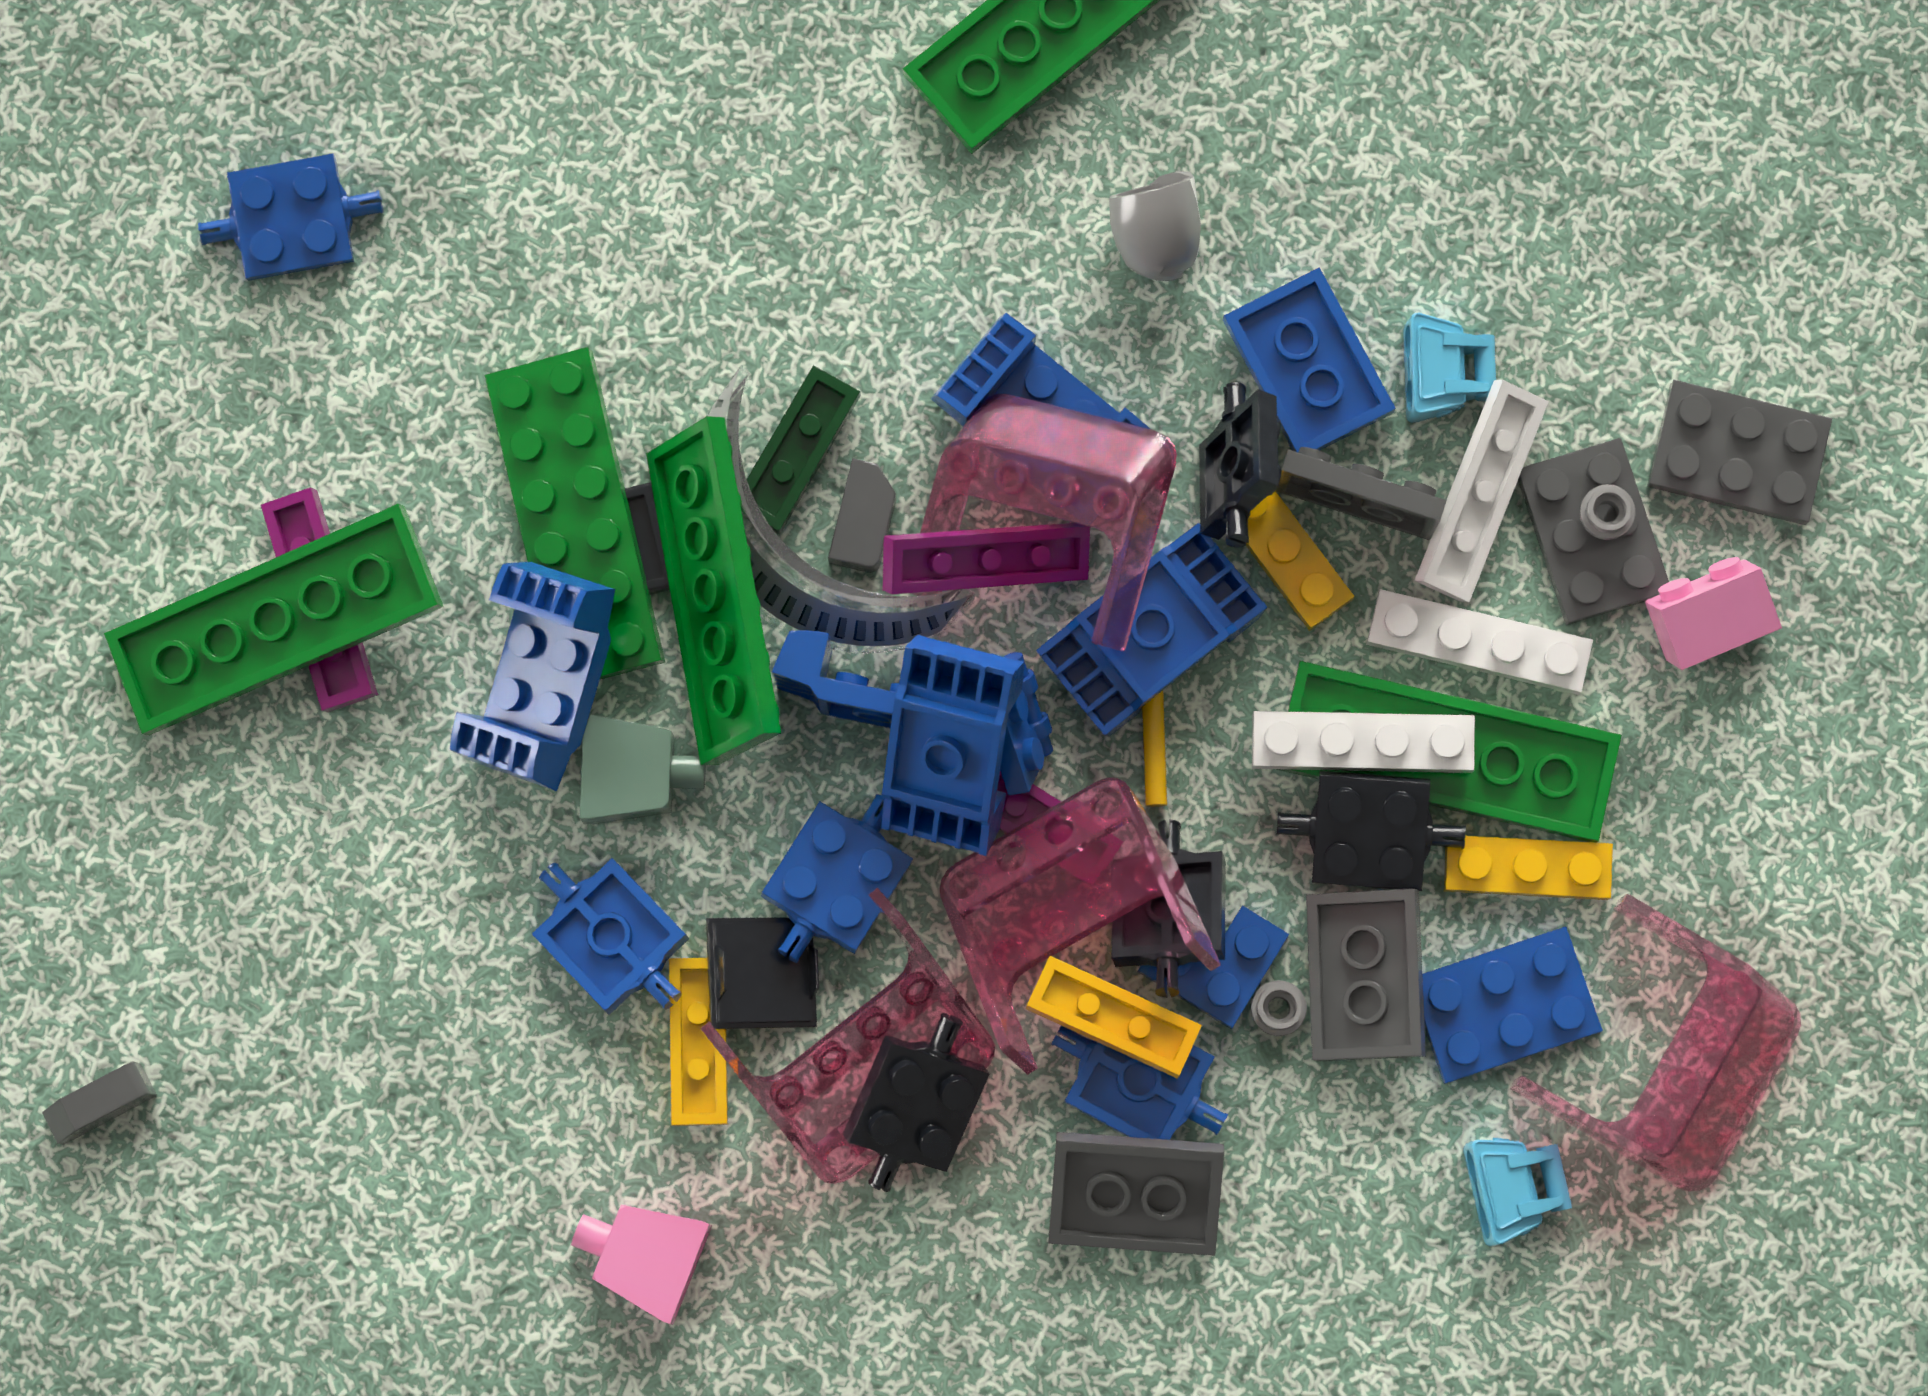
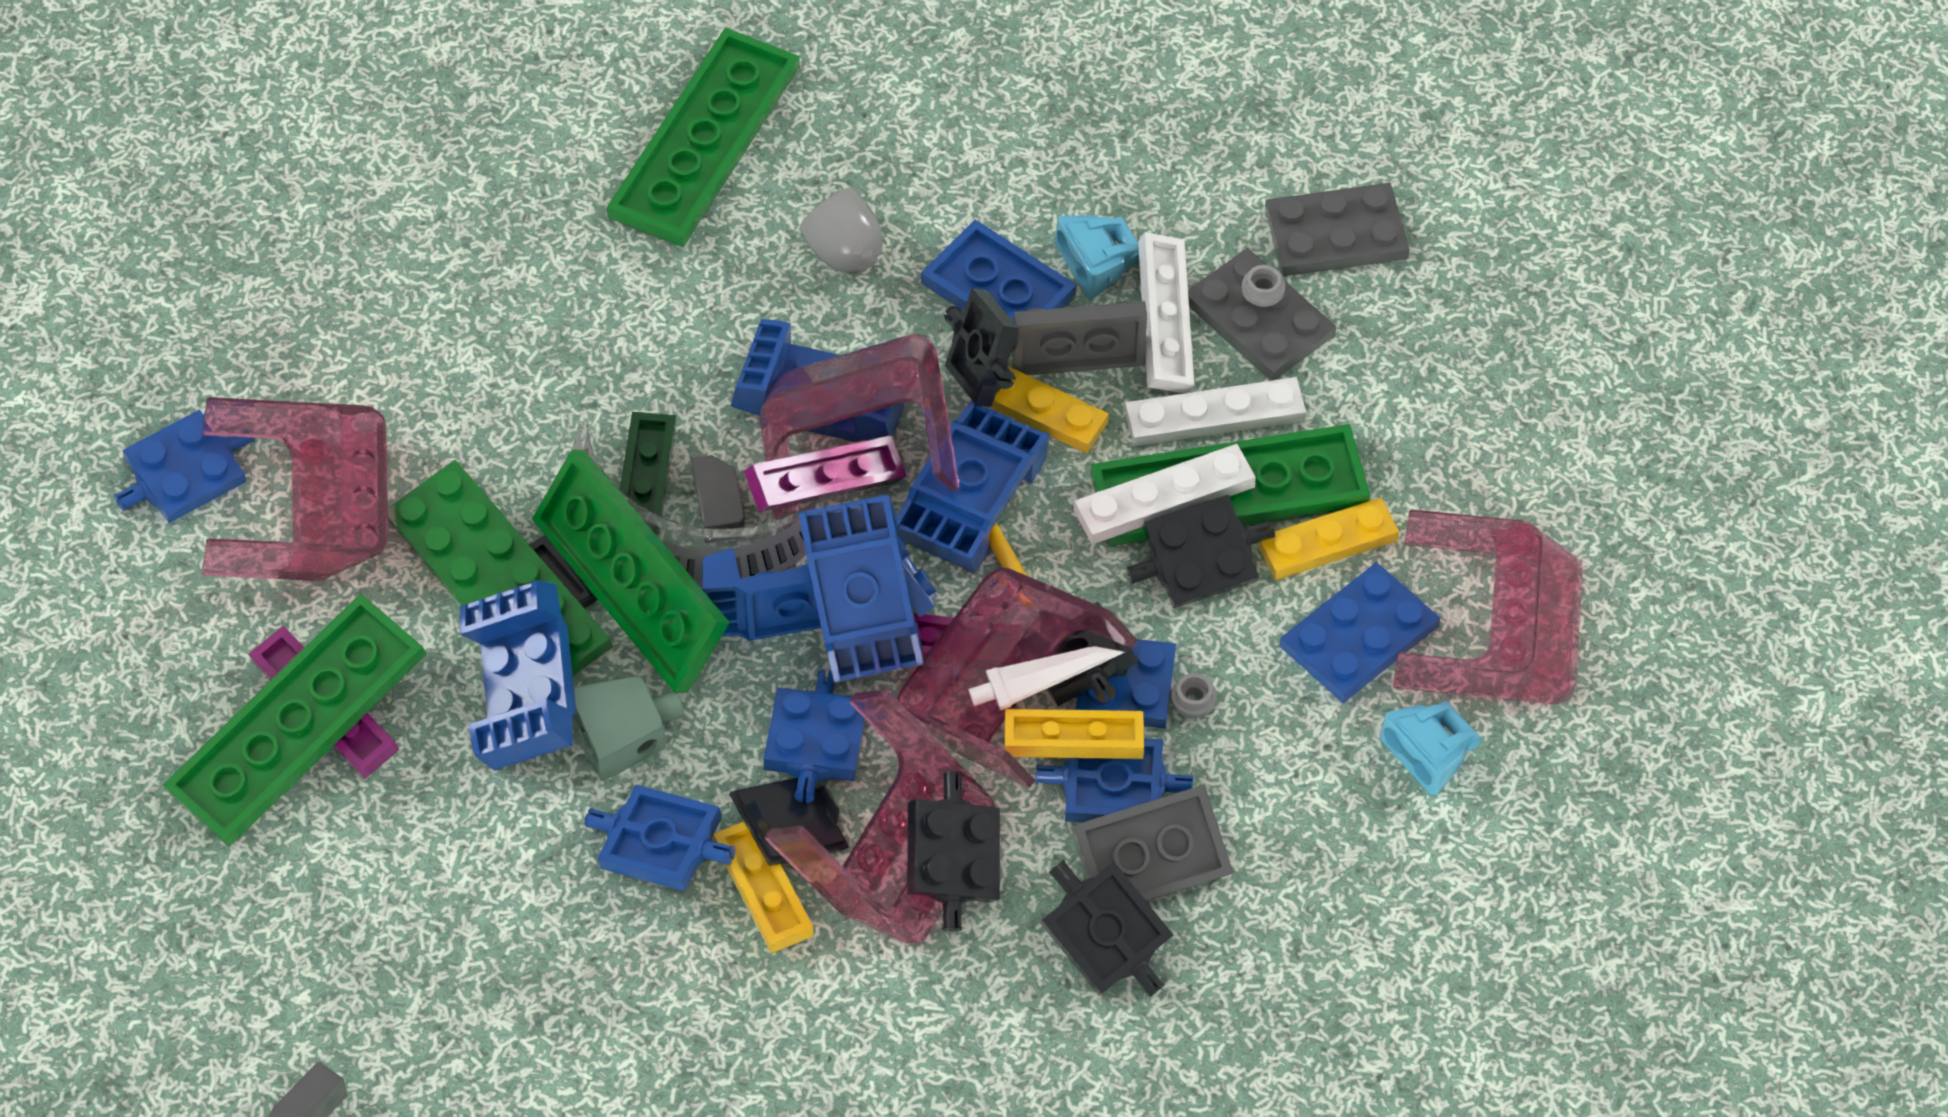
camera: 25 degrees left, 25 degrees down
(437, 332) = (335, 488): none -> clear pink windscreen
(645, 1256) = (794, 1044): bright pink torso -> none
(1040, 1270) = (1106, 928): none -> black plate
(1086, 930) = (1028, 678): none -> white bar
(1365, 975) = (1247, 644): dark grey plate -> none
(1712, 612) = (1372, 324): bright pink brick -> none

